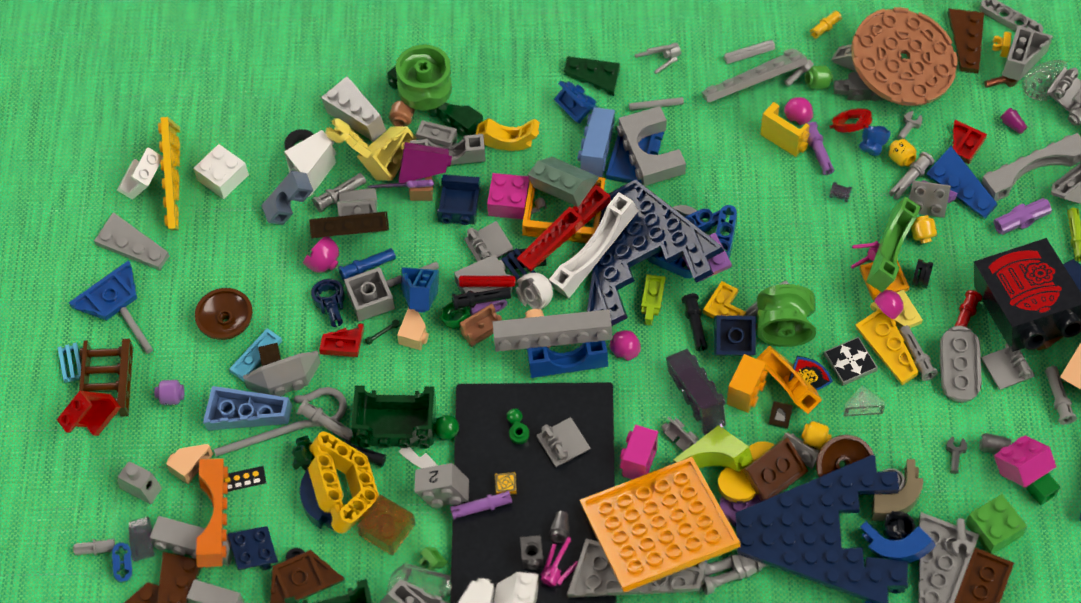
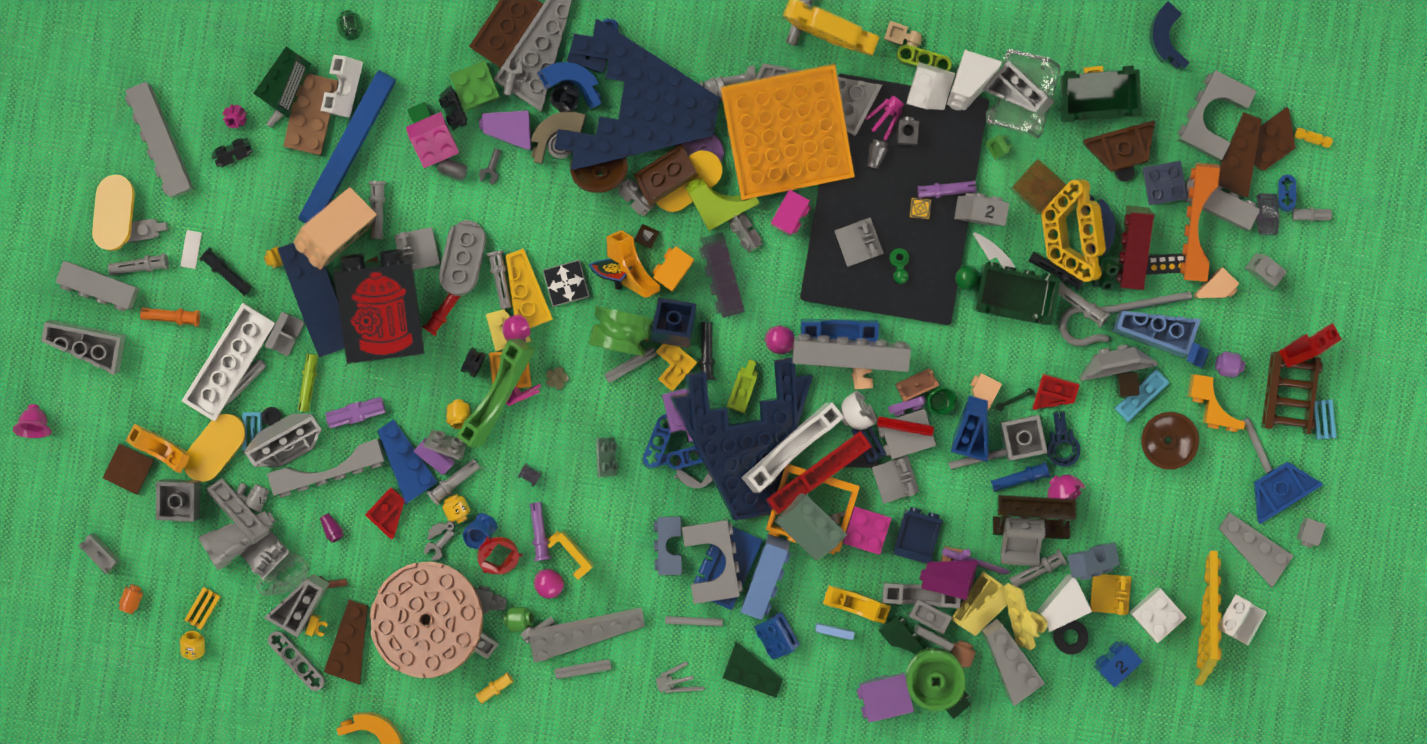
camera: 170 degrees left, 30 degrees up
(78, 262) = (1310, 532): none -> light grey brick
(180, 345) = (1202, 389): none -> light orange arch
(202, 391) = (1198, 355): none -> blue slope
(254, 124) = (1117, 663): none -> blue brick
(264, 181) = (1110, 594): none -> yellow hinge
(277, 484) = (1135, 247): none -> dark red wedge
(428, 113) = (933, 637): none -> light grey tile
(470, 68) = (885, 697): none -> medium lavender brick
(471, 298) = (924, 404): black pin -> none
(523, 113) = (834, 631): none -> light blue tile
(691, 143) = (667, 562): none -> sand blue arch
(772, 214) = (606, 457): none -> sand green hinge
(815, 435) = (618, 206): yellow head -> none
(836, 278) = (557, 378): none -> olive plant
(864, 403) = (566, 233): clear slope -> none
(914, 137) = (437, 528): none -> light grey piece
(949, 491) = (508, 127): none -> medium lavender slope
(1008, 491) = (449, 102): none -> black hinge

